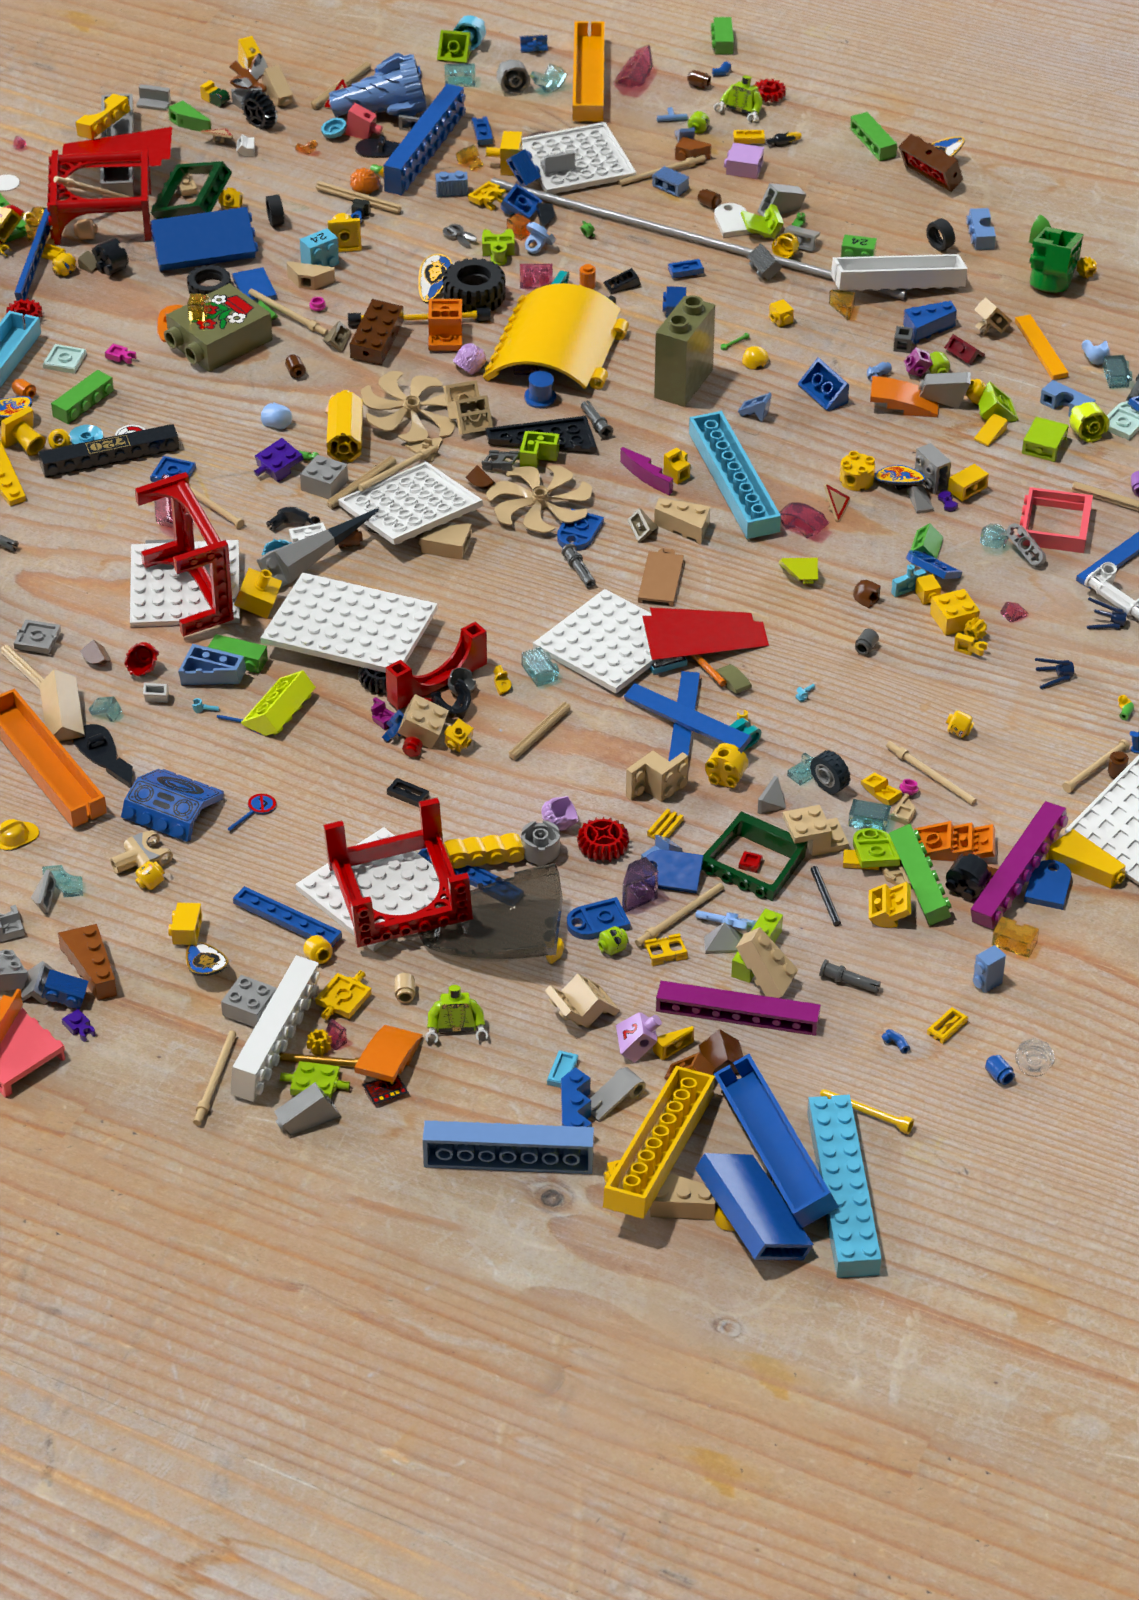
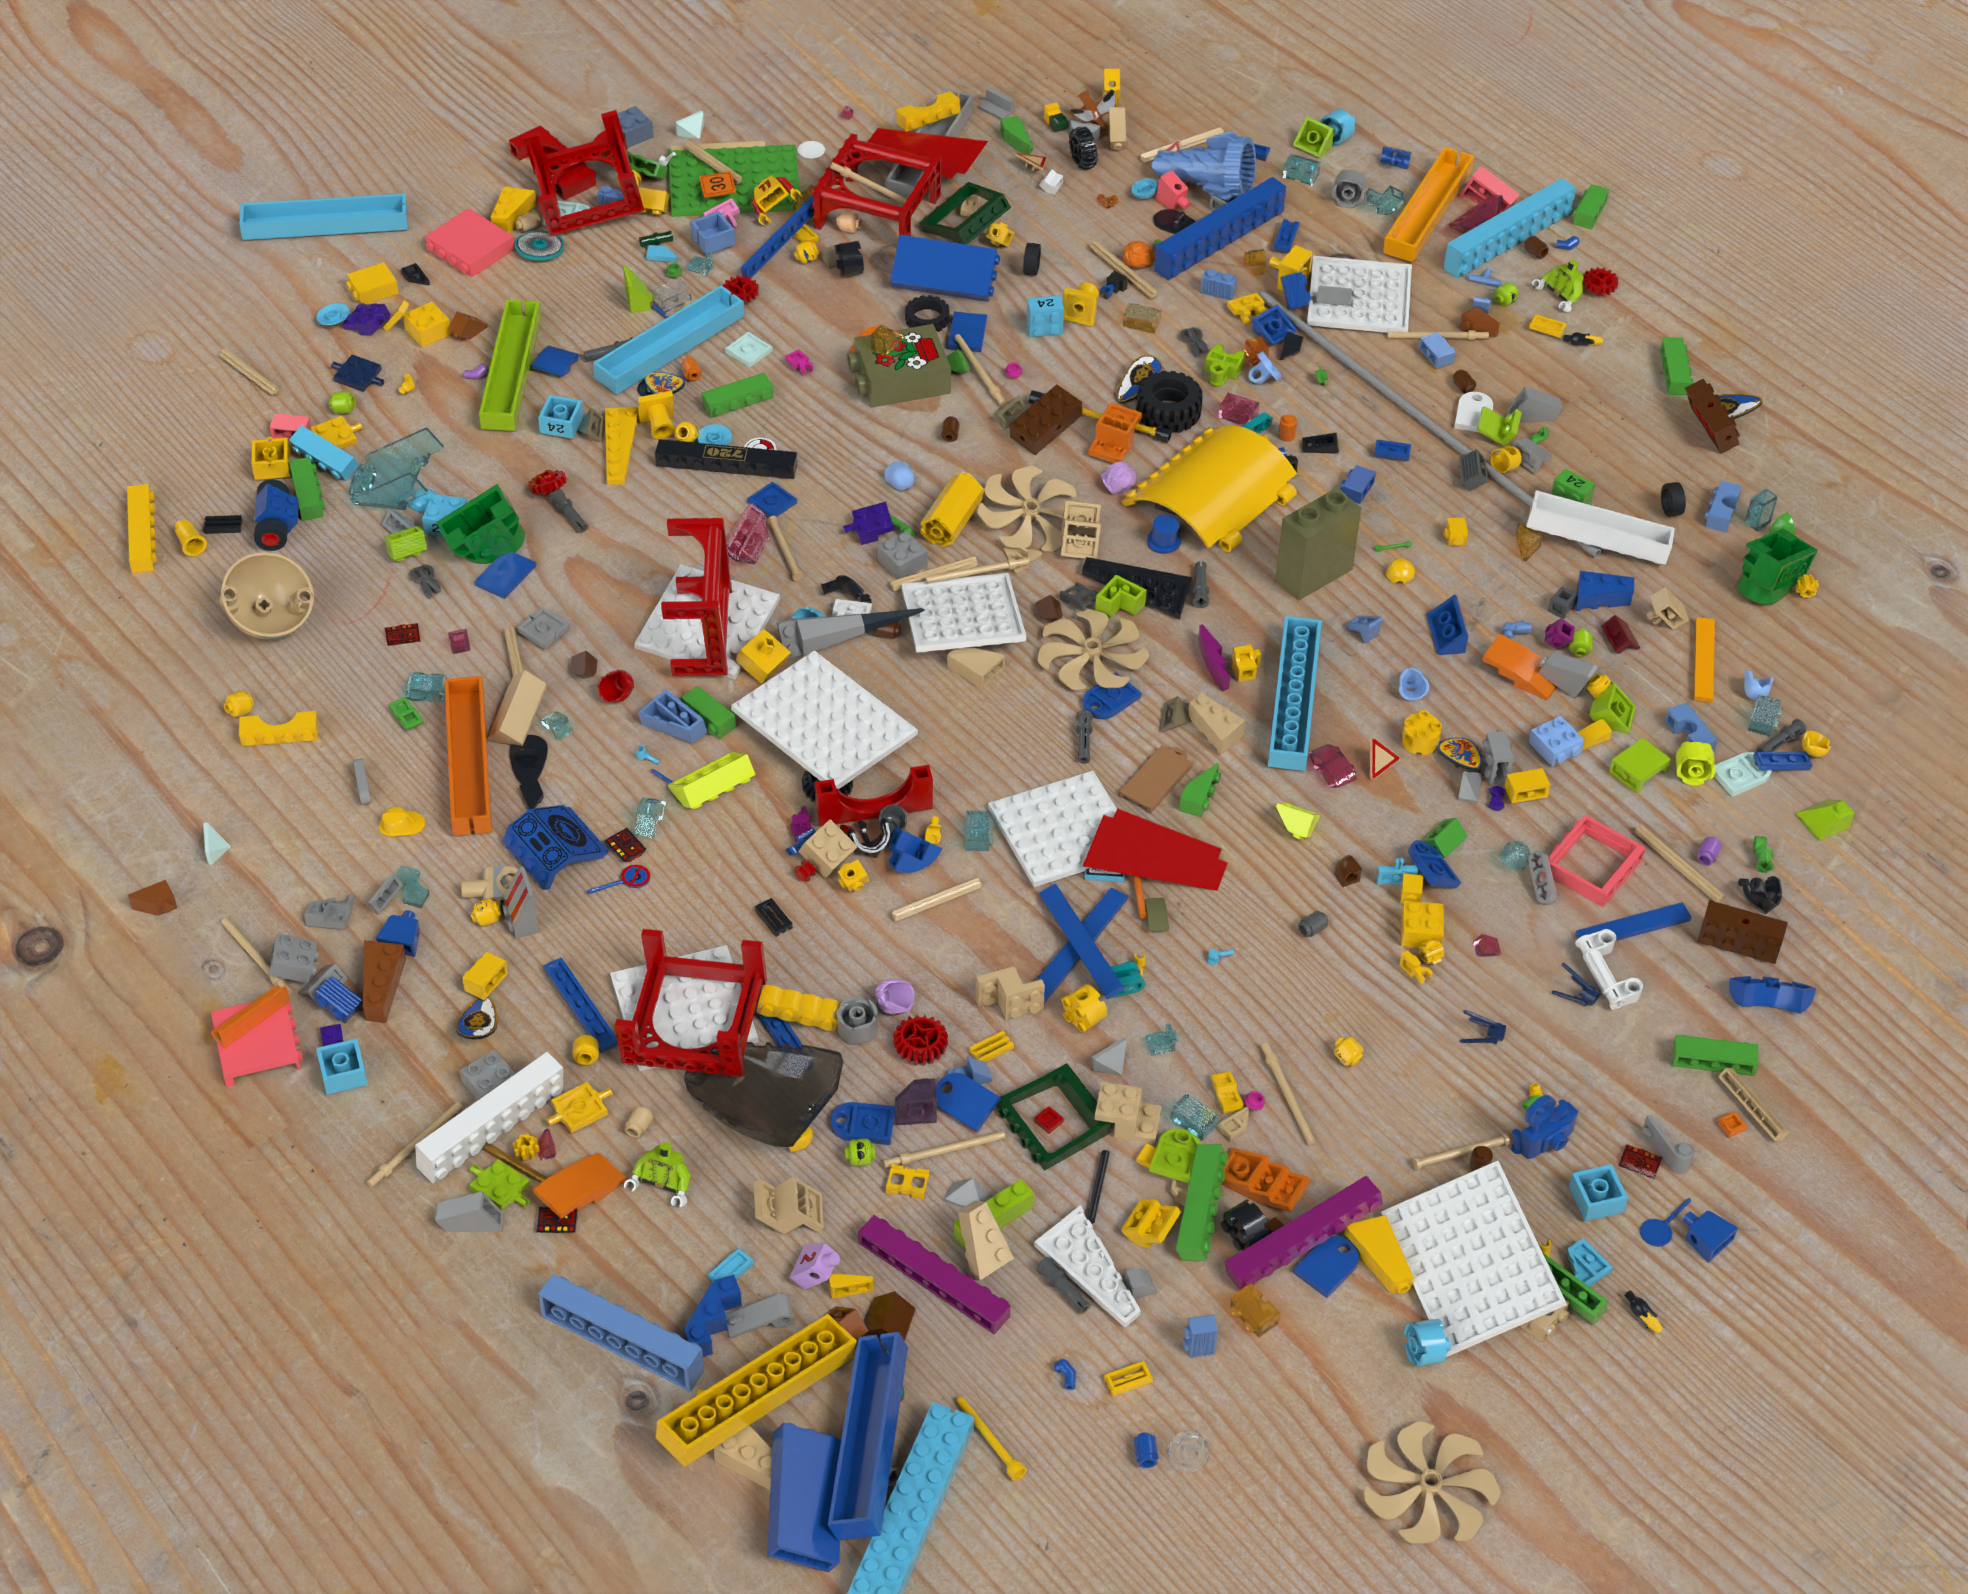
camera: 25 degrees right, 5 degrees up
(83, 914) = (402, 931): none -> blue torso
(107, 1039) = (342, 1066): none -> medium azure brick
(156, 692) = (604, 720): white piece -> none
(183, 854) = (520, 906): none -> light grey slope
(236, 782) = (626, 845): none -> piece
(244, 752) = (648, 813): none -> clear light blue brick
(309, 275) = (1025, 338): tan slope -> none
(402, 230) = (1141, 318): none -> clear yellow brick
(494, 701) = (911, 852): none -> blue brick
(627, 42) = (1486, 184): none -> coral wedge
(669, 70) = (1509, 228): none -> medium azure piece
(705, 579) = (1197, 792): none -> bright green slope
(730, 919) = (984, 1176): light blue piece -> none
(744, 160) = (1525, 351): lavender piece -> none
(826, 434) = (1411, 679): none -> light blue hair
(830, 772) = (1180, 1055): black wheel -> none
(860, 955) = (1087, 1263): none -> white wing
(909, 953) = (1139, 1283): none -> light grey brick
(969, 442) = (1556, 741): none -> light blue brick
(1015, 220) = (1761, 509): none -> clear light blue brick

